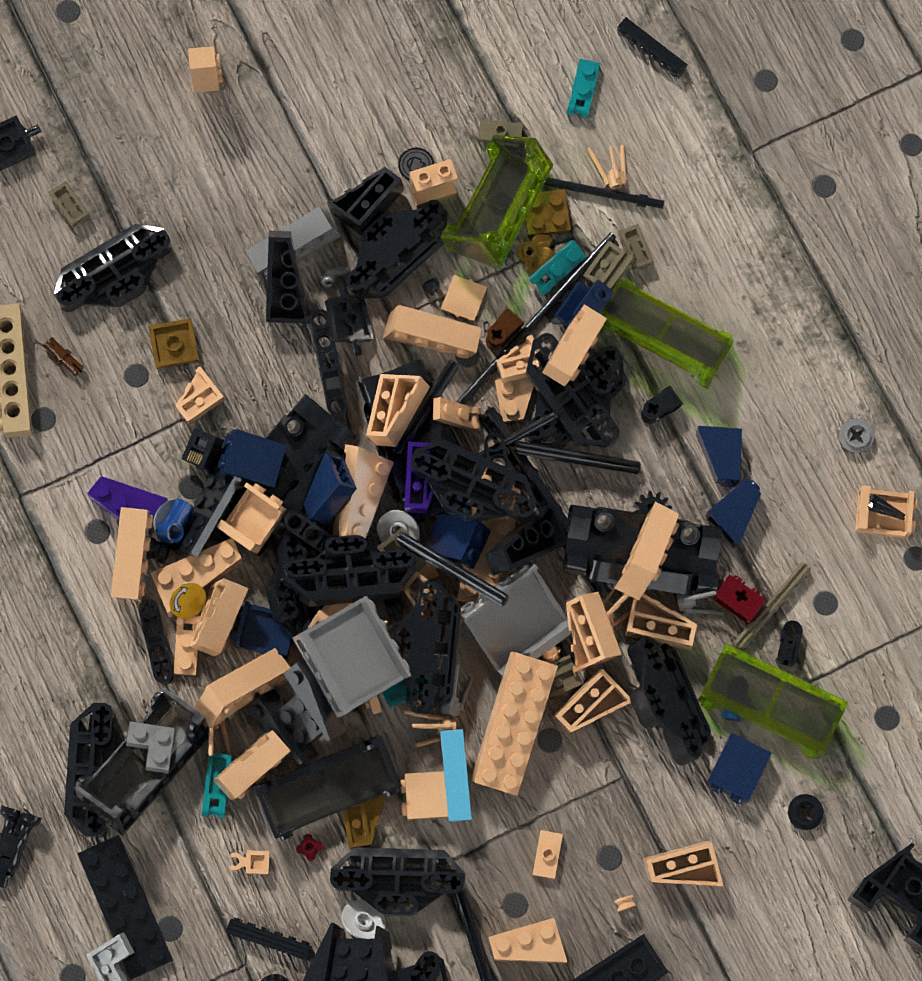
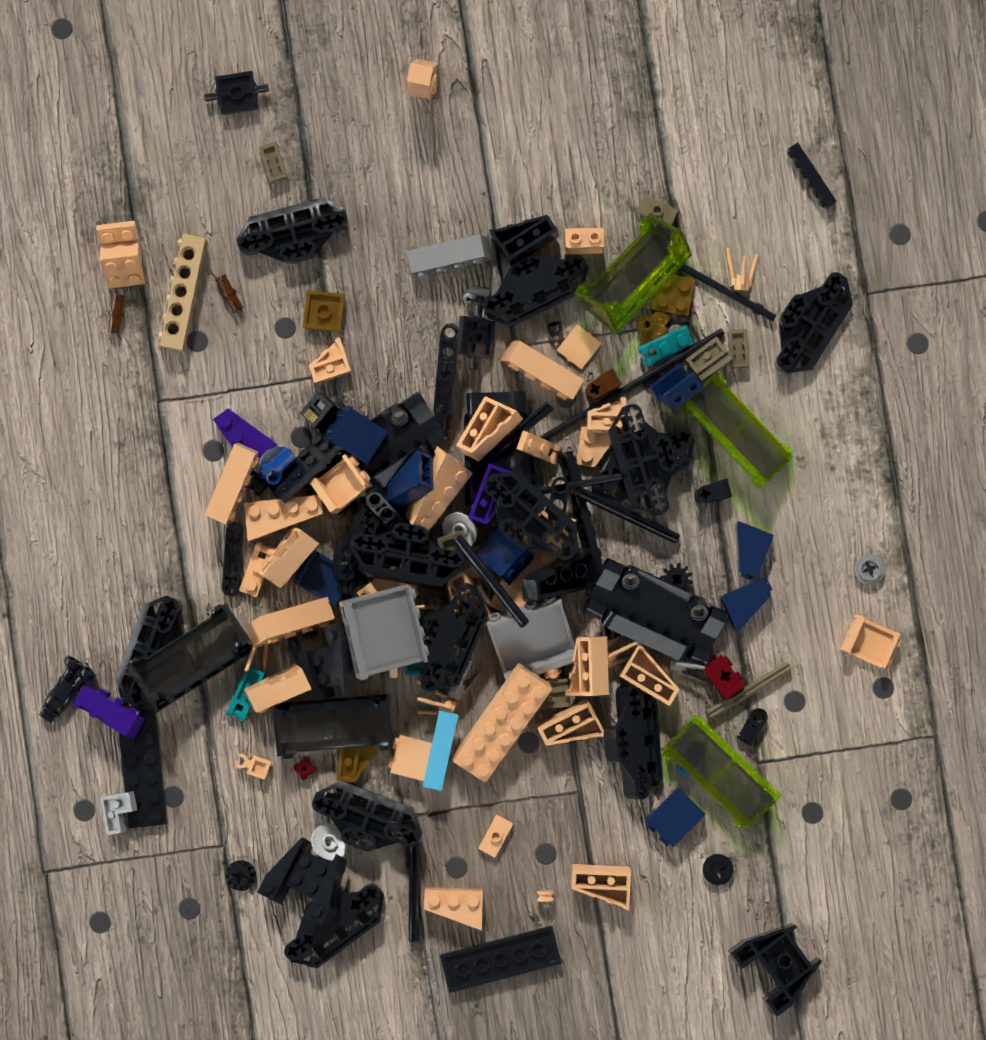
camera: 25 degrees right, 10 degrees up
(69, 850) = (110, 711): none -> dark purple wedge
(157, 741) = (206, 645): light grey plate -> none
(187, 600) = (267, 535): yellow sticker -> none
(268, 939) = (249, 832): black piece -> none
(284, 285) = (429, 295): black wedge -> none
(414, 159) = (576, 215): sticker -> none
(574, 346) = (653, 425): light nougat wedge -> none
(583, 87) = (741, 193): teal plate -> none
(648, 551) = (658, 618): light nougat wedge -> none
(699, 193) = (810, 319): none -> black connector
(881, 506) = (869, 638): black piece -> none

